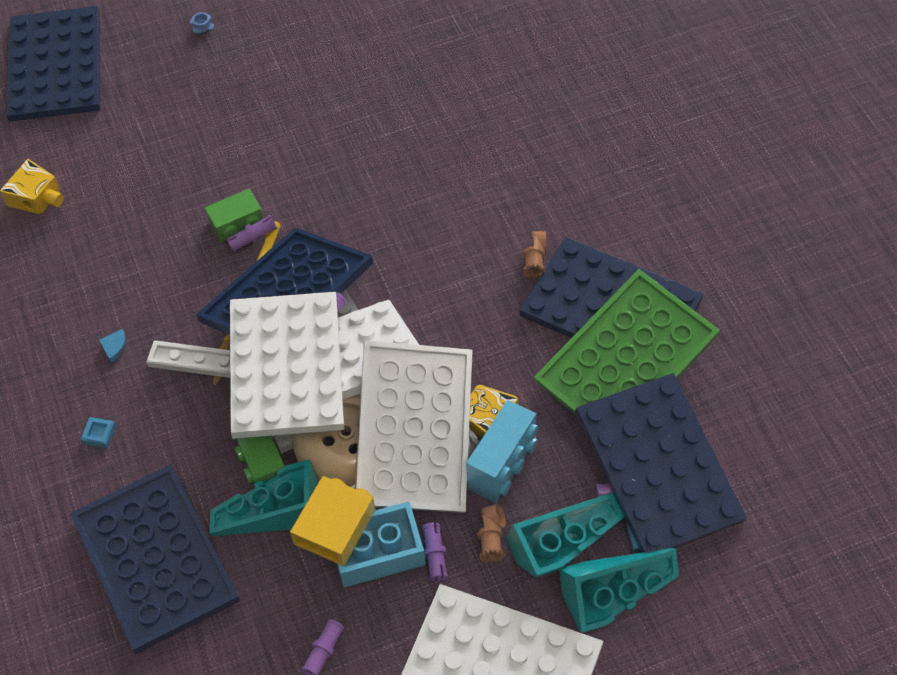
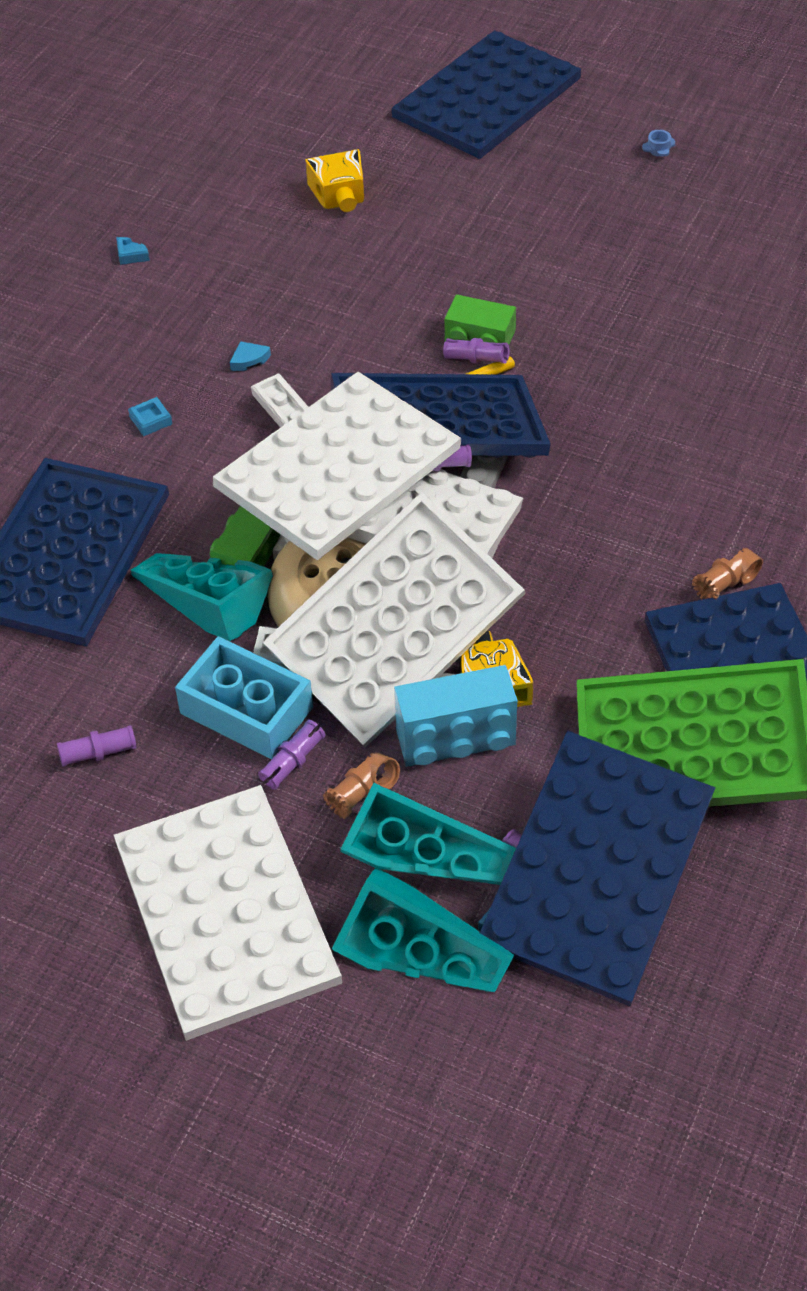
camera: 45 degrees right, 5 degrees down
(333, 520) = (220, 632): yellow brick -> none

